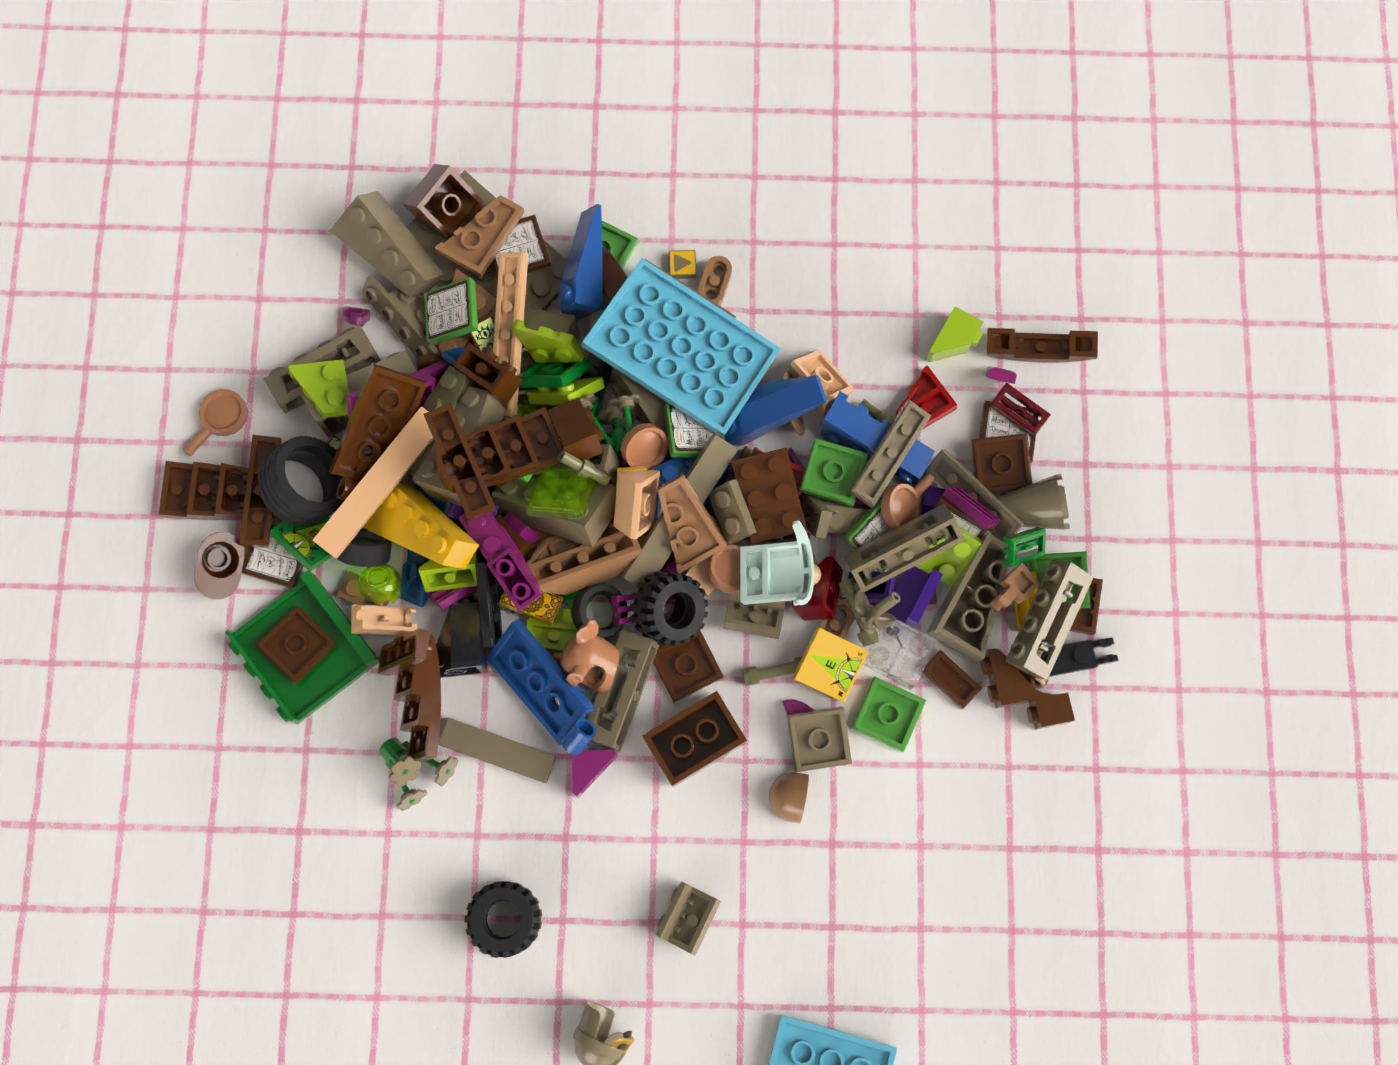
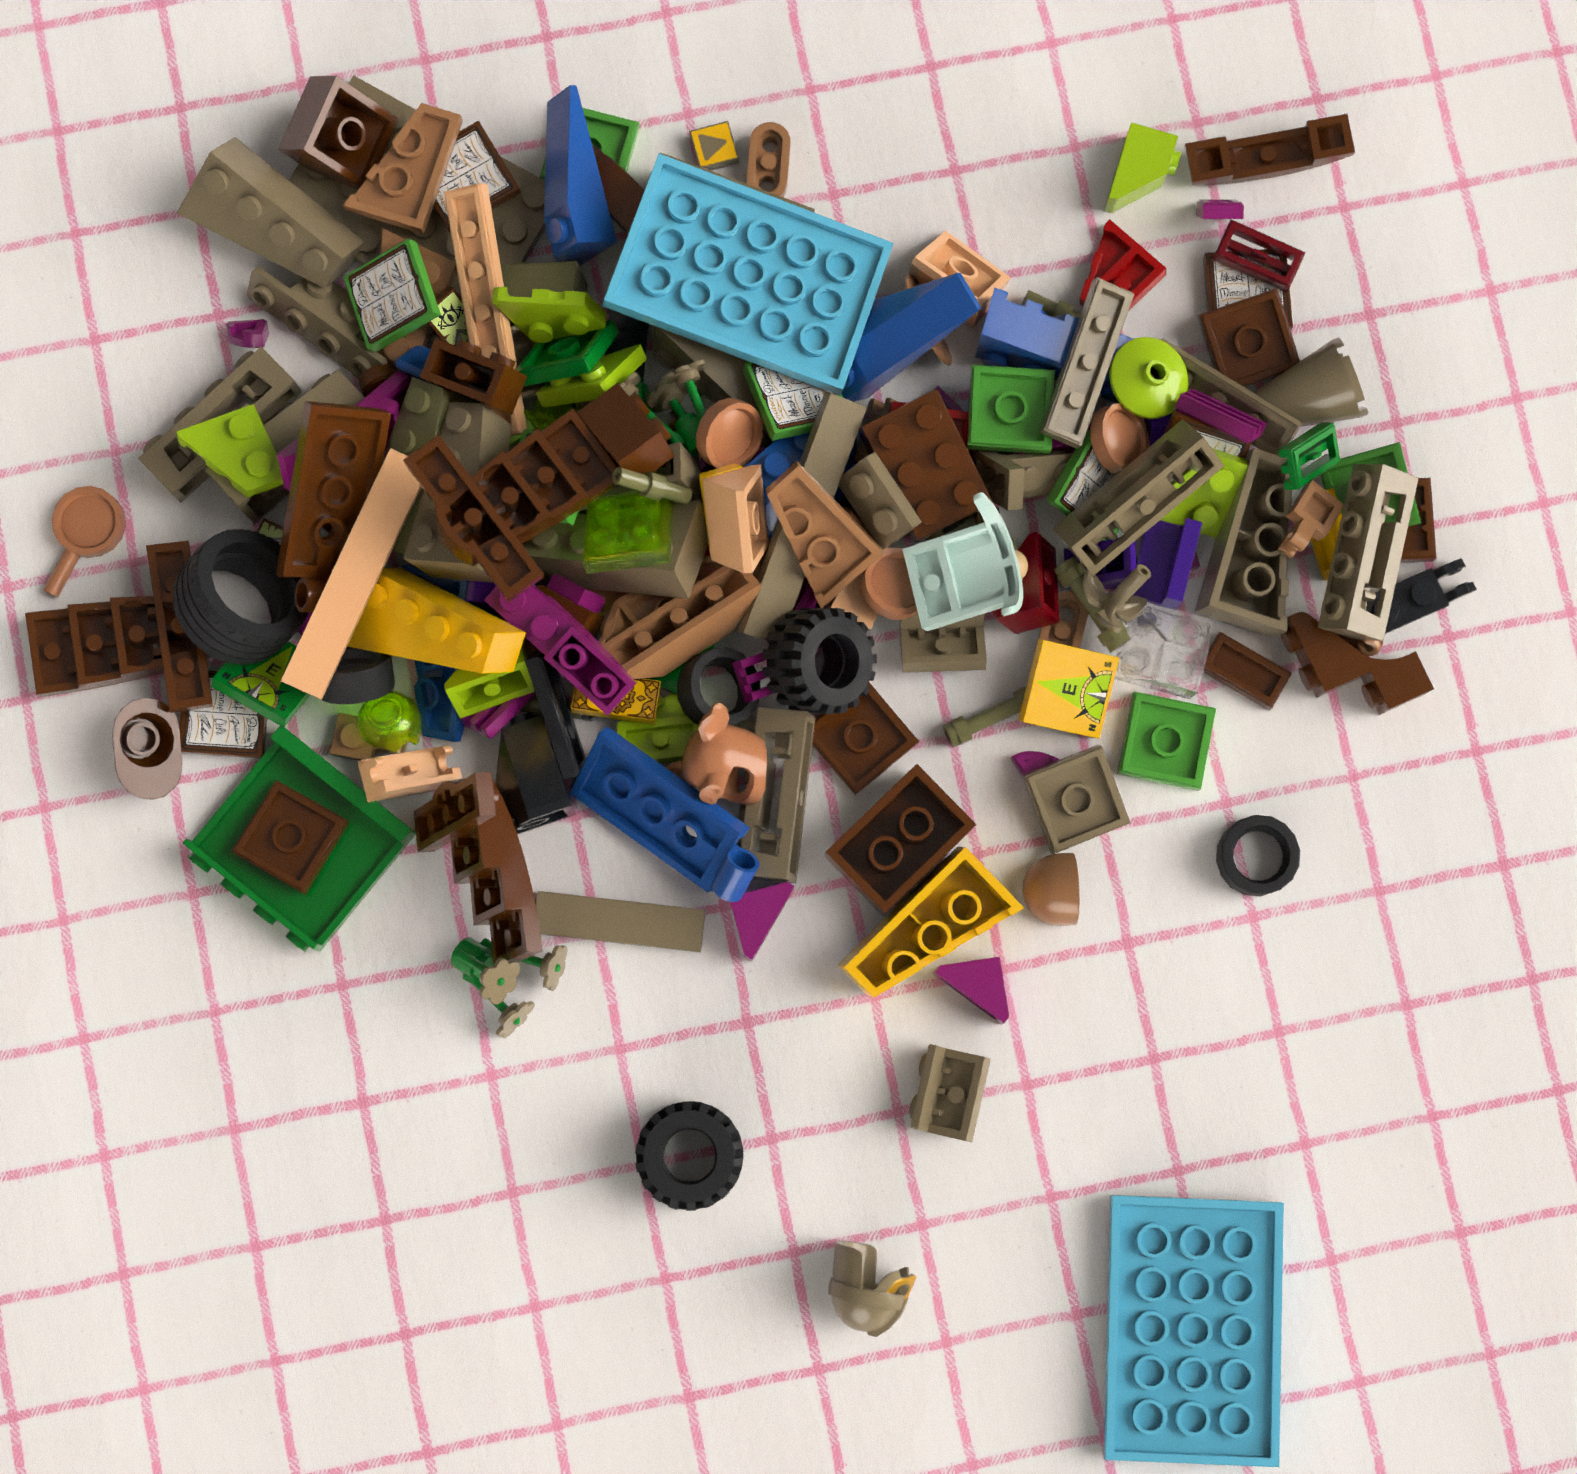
camera: 15 degrees left, 5 degrees up
(708, 796) = (932, 921): none -> yellow wedge
(725, 847) = (979, 983): none -> magenta slope
(920, 478) = (1137, 388): none -> lime dish
(954, 804) = (1273, 827): none -> black tyre

